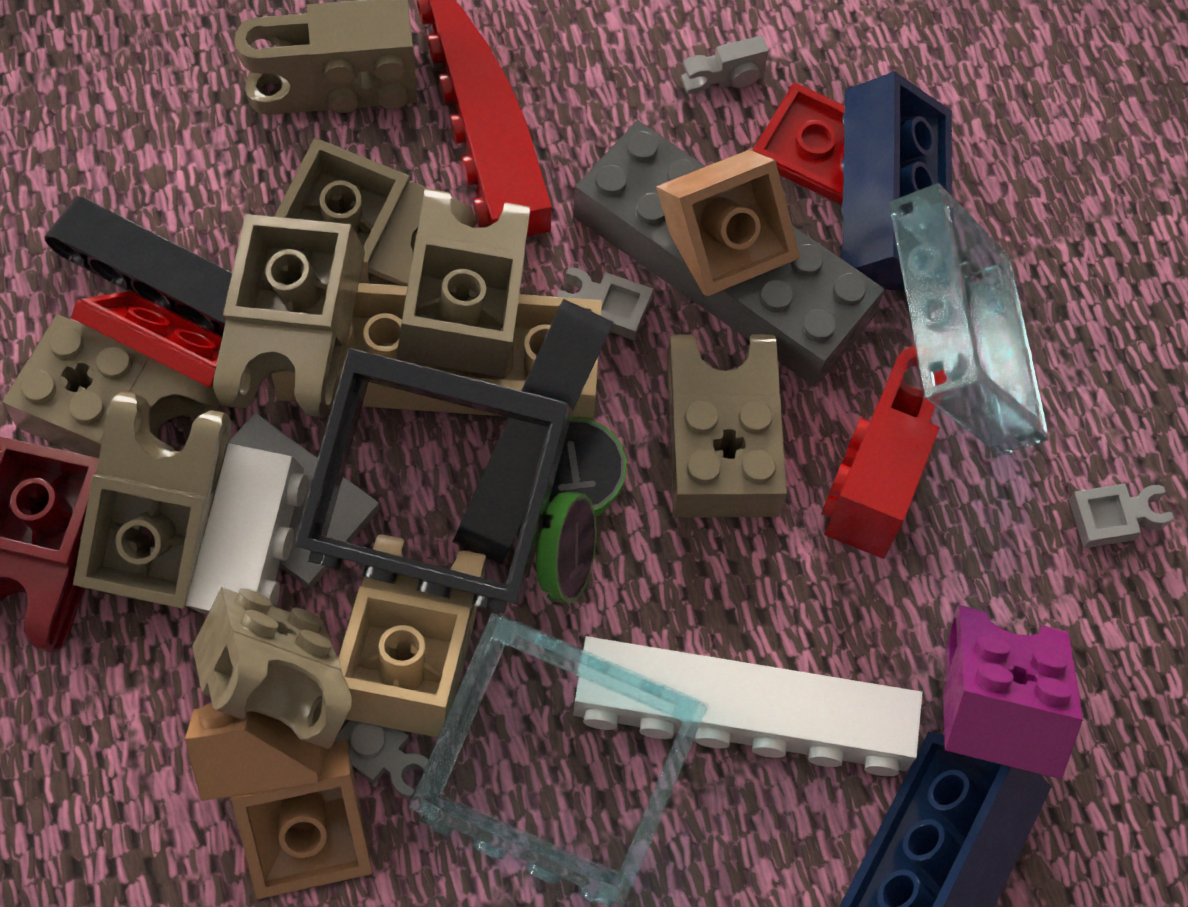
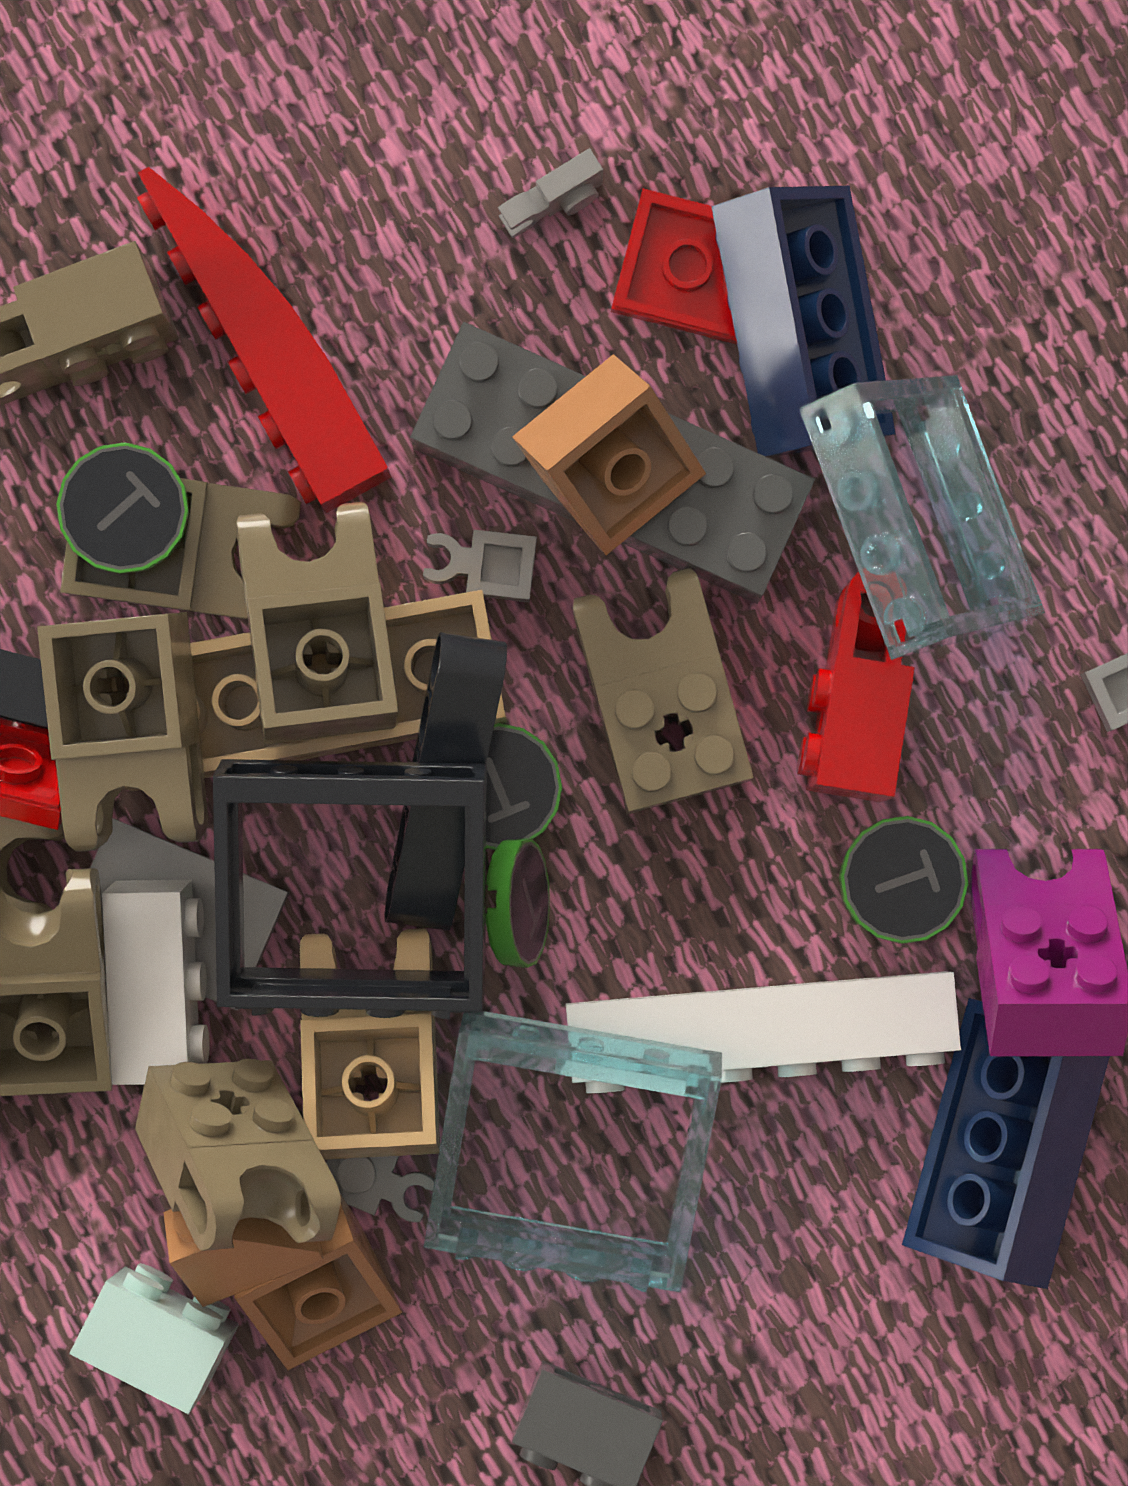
camera: 10 degrees left, 20 degrees up
(147, 820) = (155, 1336): none -> light aqua brick
(339, 172) = (122, 508): none -> black tile
(891, 621) = (903, 879): none -> black tile

